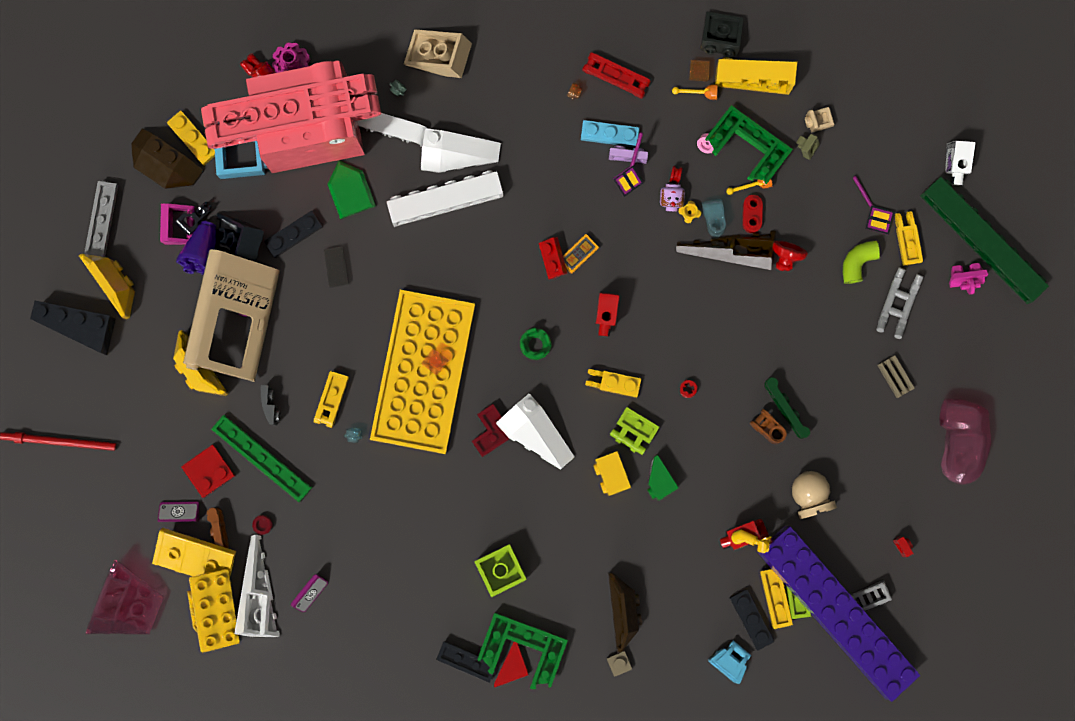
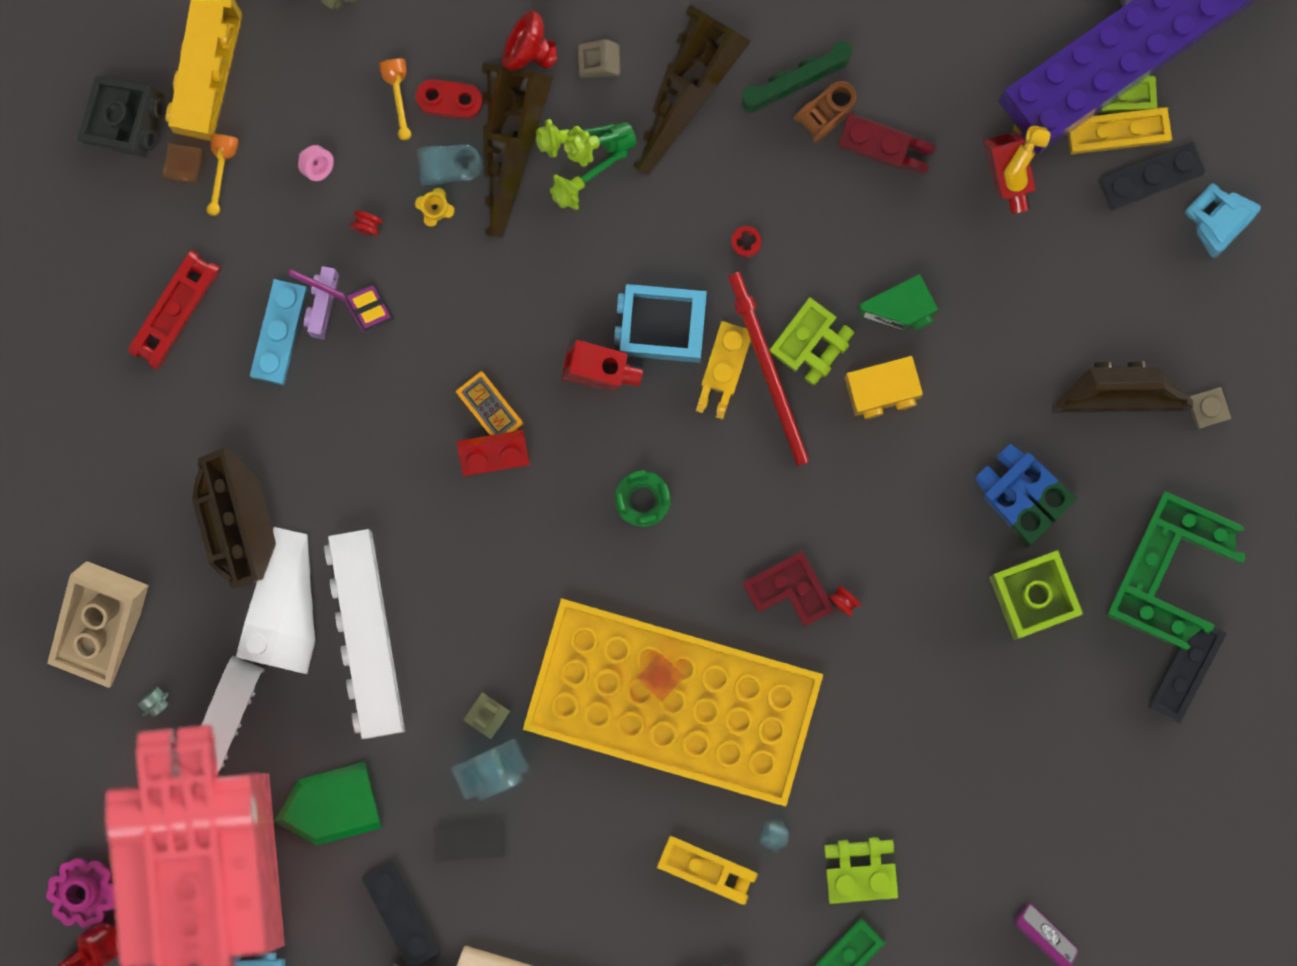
camera: 85 degrees left, 0 degrees up
(332, 488) = (861, 882): none -> lime plate
(374, 274) = (492, 771): none -> clear light blue brick
(406, 269) = (486, 716): none -> olive tile
(488, 462) = (844, 601): none -> red bush
(502, 119) = (233, 518): none -> dark brown wedge
(513, 667) = (1203, 592): red tile -> none
(534, 430) = (794, 515): white wedge -> none
(562, 555) = (1026, 495): none -> blue hips
(574, 91) = (195, 386): clear orange plate -> none
(636, 364) = (625, 306): none -> medium azure window
(649, 391) = (745, 306): none -> red bar
(672, 197) = (405, 233): lavender head -> none
(729, 286) = (579, 148): none -> lime plant
(736, 122) = (340, 48): green wedge -> none
(753, 461) = (883, 144): none -> dark red hinge
(785, 295) = (599, 59): none -> dark tan slope
(790, 354) = (702, 61): none -> dark brown wedge
(812, 494) = (948, 49): tan tile -> none

